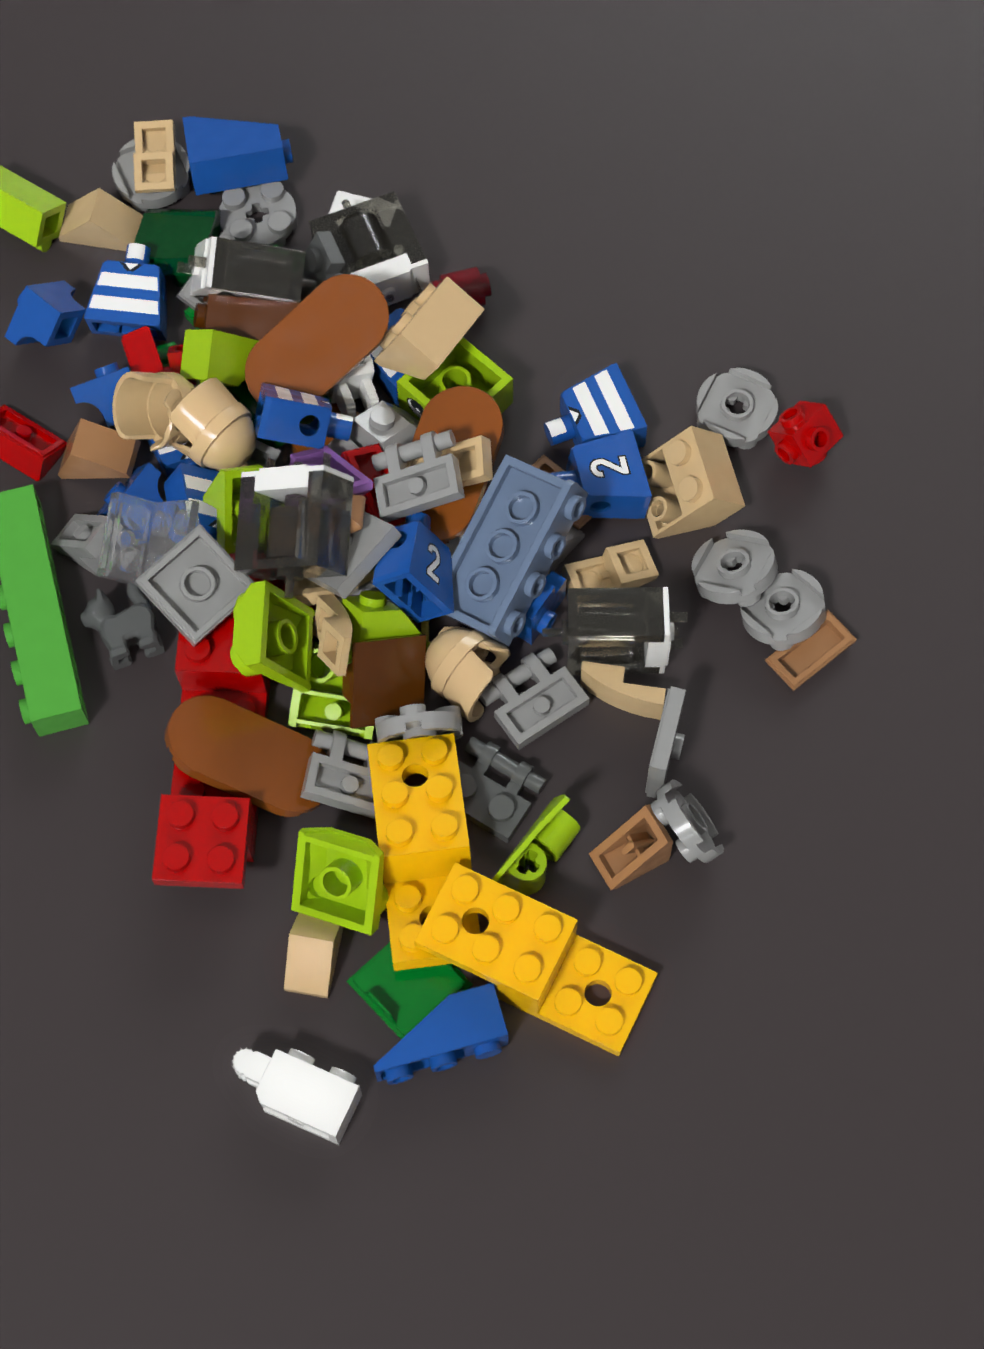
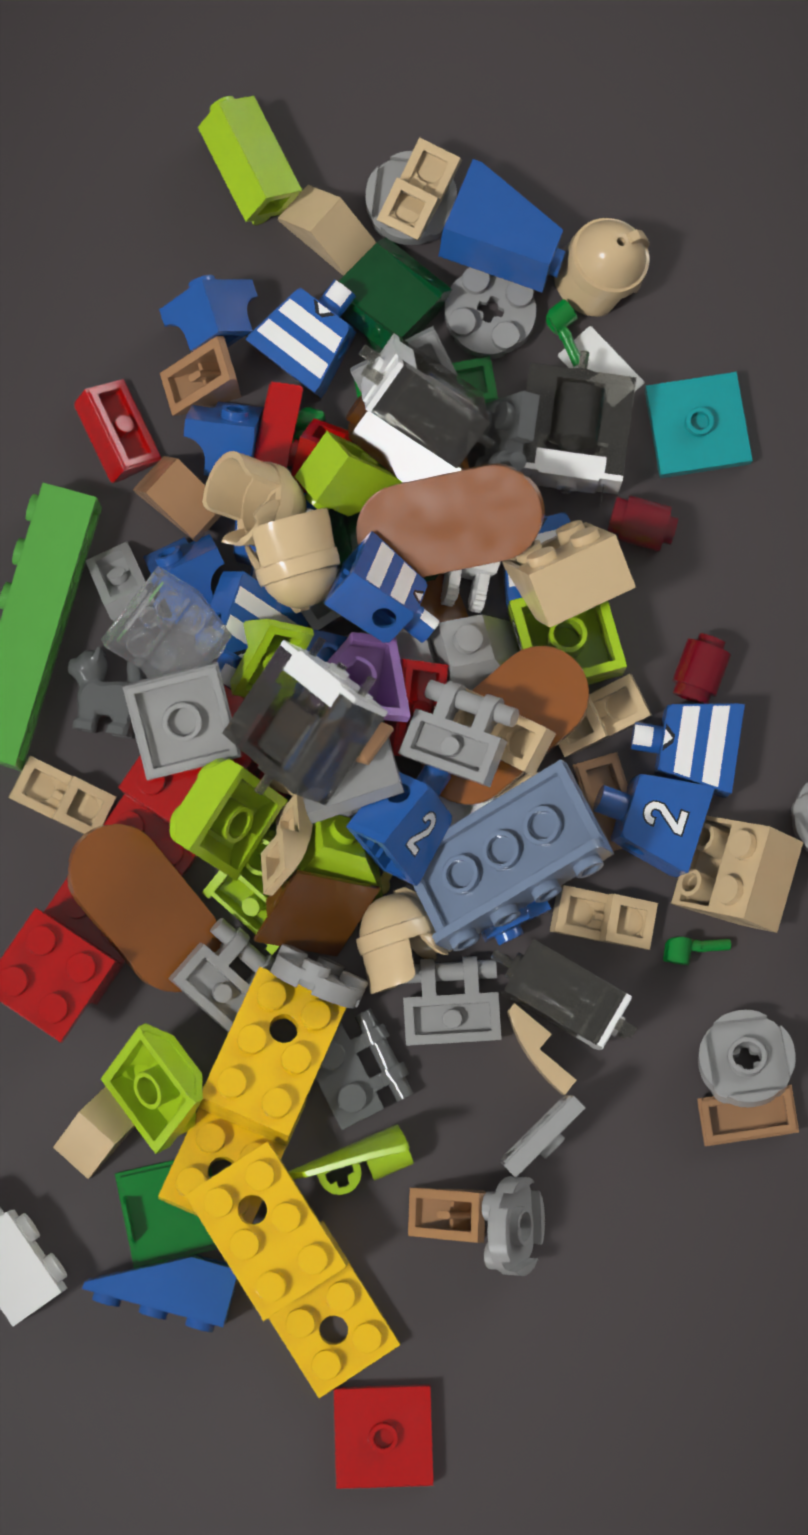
camera: 30 degrees right, 15 degrees up
(66, 363) = (201, 378): none -> medium nougat slope
(130, 722) = (61, 796): none -> tan slope
(313, 193) = (558, 320): none -> green hand
(321, 140) = (602, 266): none -> tan helmet
(459, 210) = (698, 425): none -> teal plate
(522, 430) = (608, 713): none -> tan slope
(567, 361) = (701, 669): none -> dark red brick
(681, 562) = (679, 949): none -> green hand
(689, 1054) = (383, 1436): none -> red plate
(740, 585) = (721, 1017): light grey plate -> none

